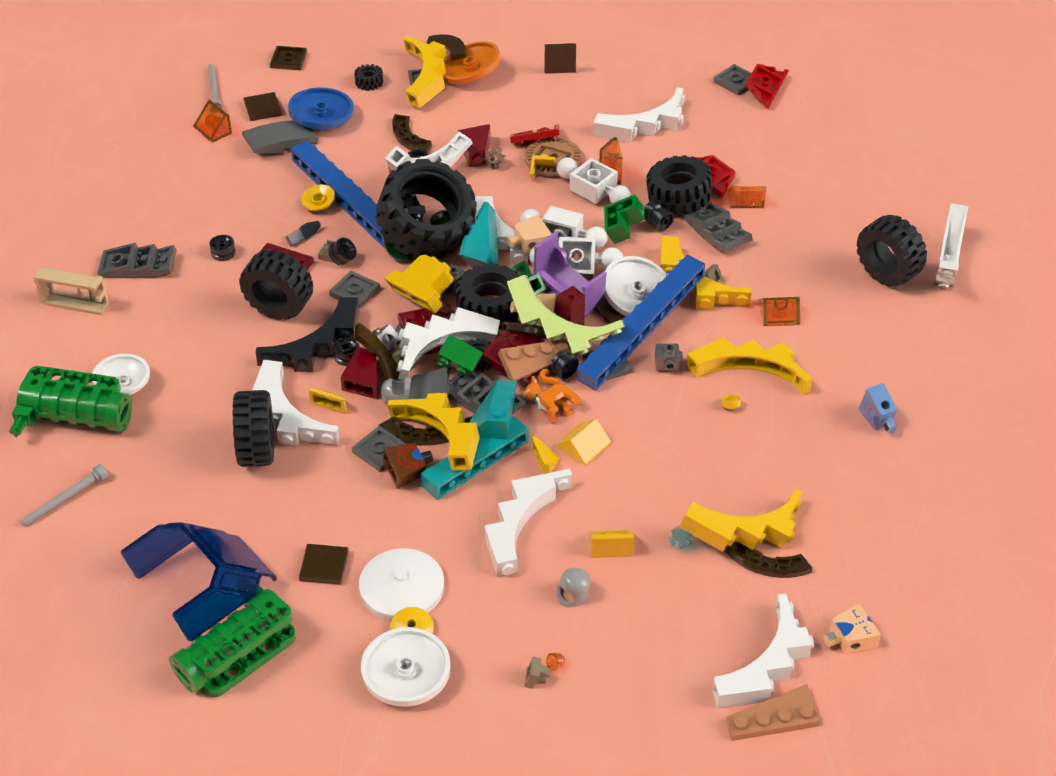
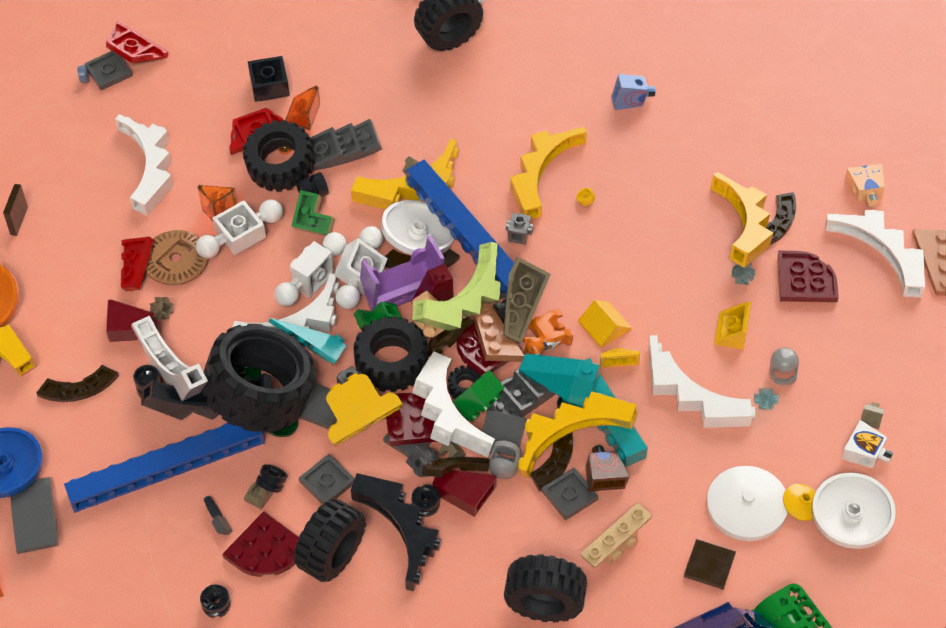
camera: 75 degrees left, 10 degrees up
(291, 423) = (469, 579): white arch -> none
(318, 197) = (165, 481): yellow dish -> none
(327, 400) = (492, 525): yellow slope -> none
(329, 482) = (617, 538): none -> tan bracket
(493, 672) = (866, 446): none -> white torso
(527, 577) = (766, 398): none -> clear light blue gear
(528, 234) = (321, 295): light nougat torso -> none
(543, 160) = (189, 272): yellow bracket -> none
(553, 659) = (862, 395): clear orange hinge -> none
(577, 359) = (523, 295): none -> dark tan wedge
(698, 593) = (805, 278): none -> dark red plate
(721, 64) = (83, 74): none -> sand blue tile
(767, 164) = (268, 78): none -> black brick
(780, 311) = (474, 128): clear orange slope -> none

